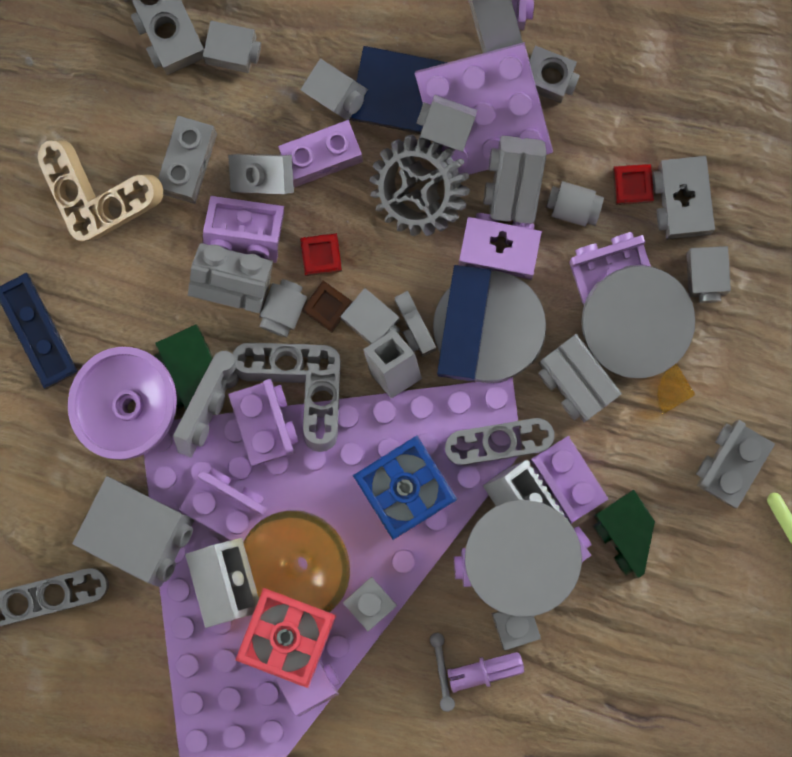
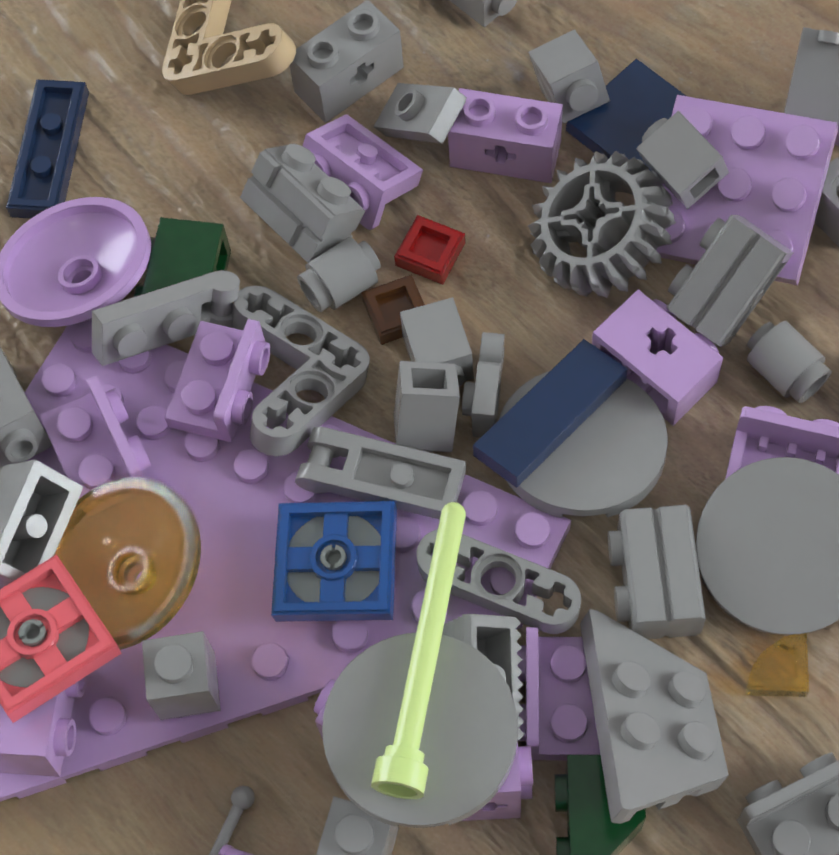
camera: 35 degrees right, 20 degrees down
(397, 421) = (381, 472): none -> light grey plate
(530, 584) = (401, 768): none -> yellowish green piece
(625, 466) = (650, 720): none -> light grey wing

